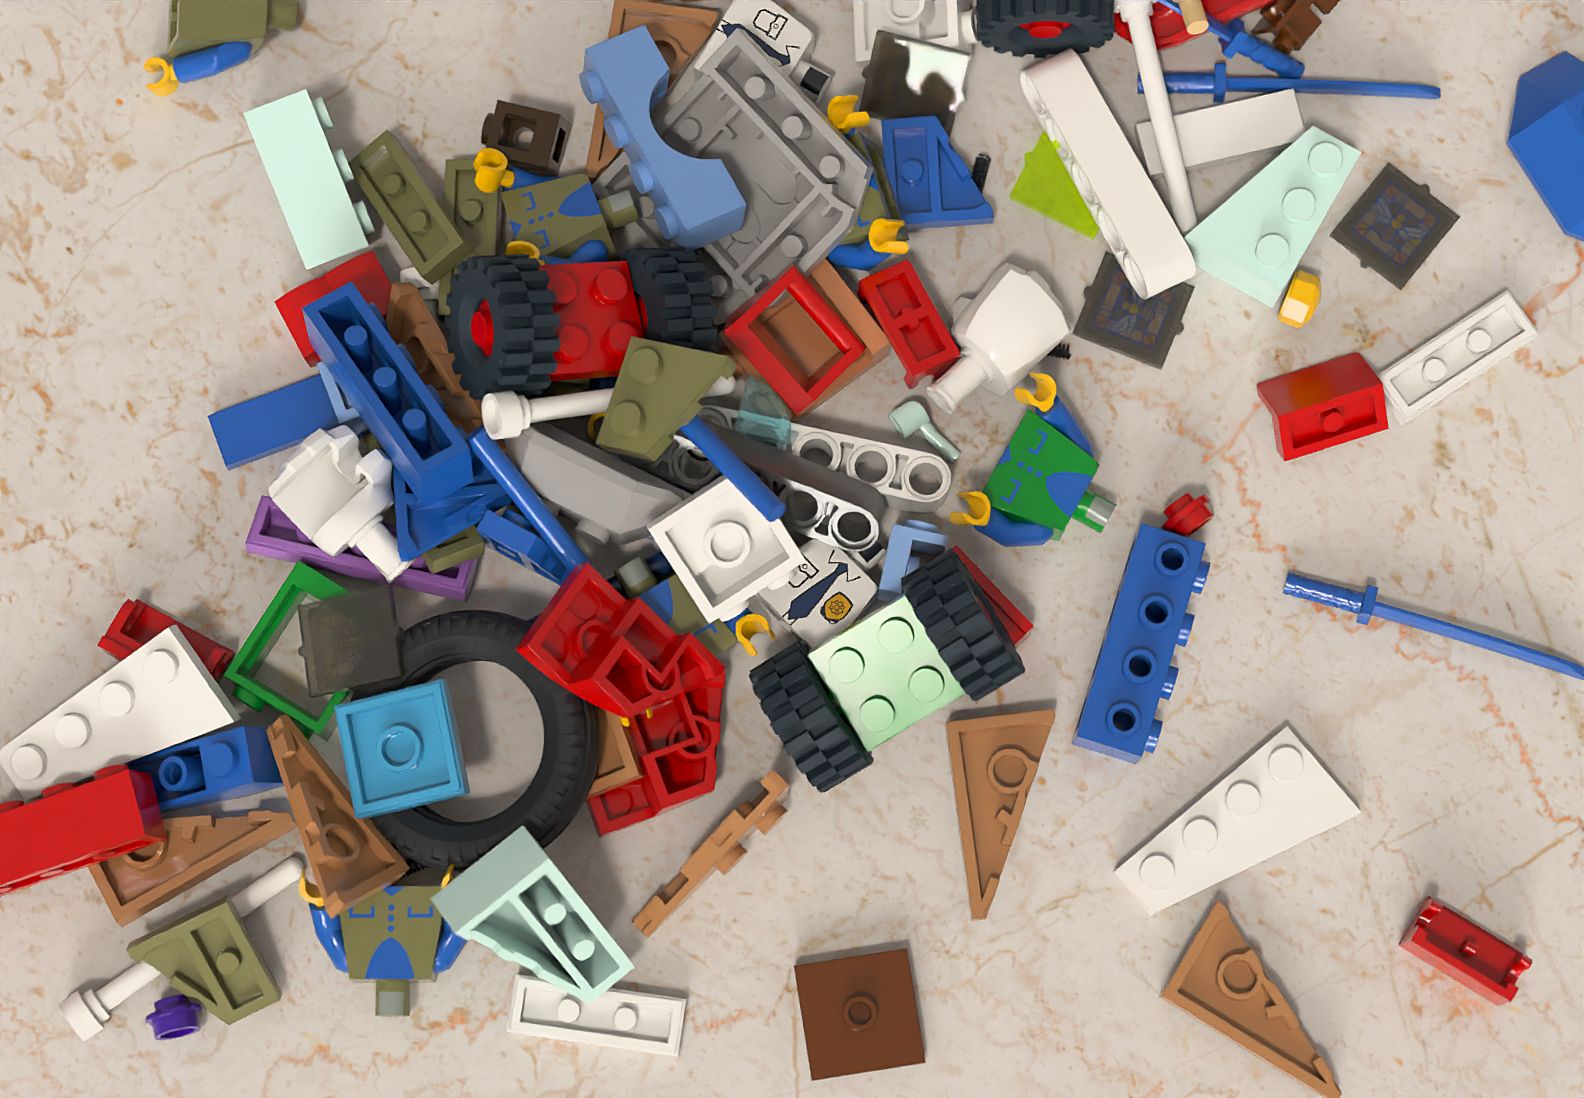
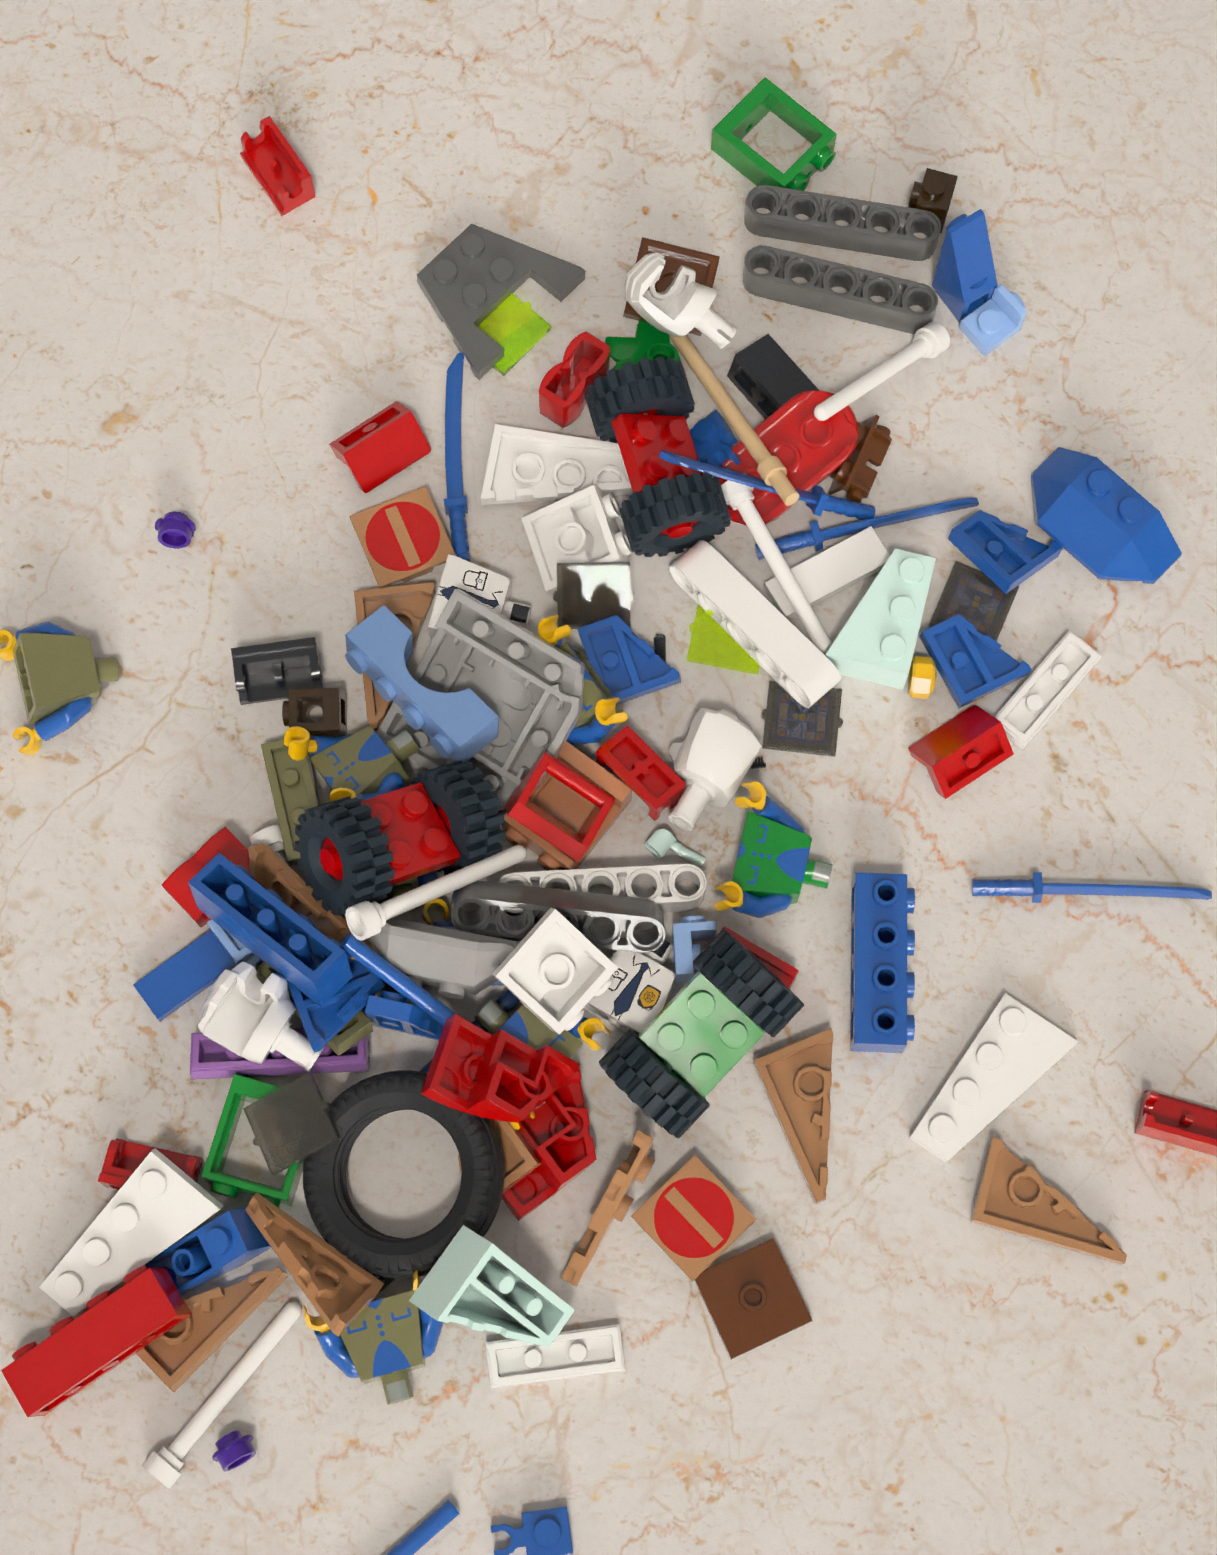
camera: 15 degrees left, 5 degrees down
(212, 960) = (251, 1398): olive wing -> none
(309, 178) = (163, 785): light aqua wedge -> none
(402, 749) = (354, 1194): dark azure tile -> none
(409, 207) = (244, 787): olive plate -> none
(486, 68) = (272, 669): none -> black hinge
(657, 396) = (474, 874): olive wing -> none
(734, 469) = (520, 897): blue bar -> none
(763, 414) = (553, 868): clear light blue tile -> none
(814, 895) = (693, 1218): none -> piece
(1187, 515) = (886, 857): red plate -> none
(1367, 295) = (970, 661): none -> blue wing
(1451, 164) = (1002, 549): none -> blue wing

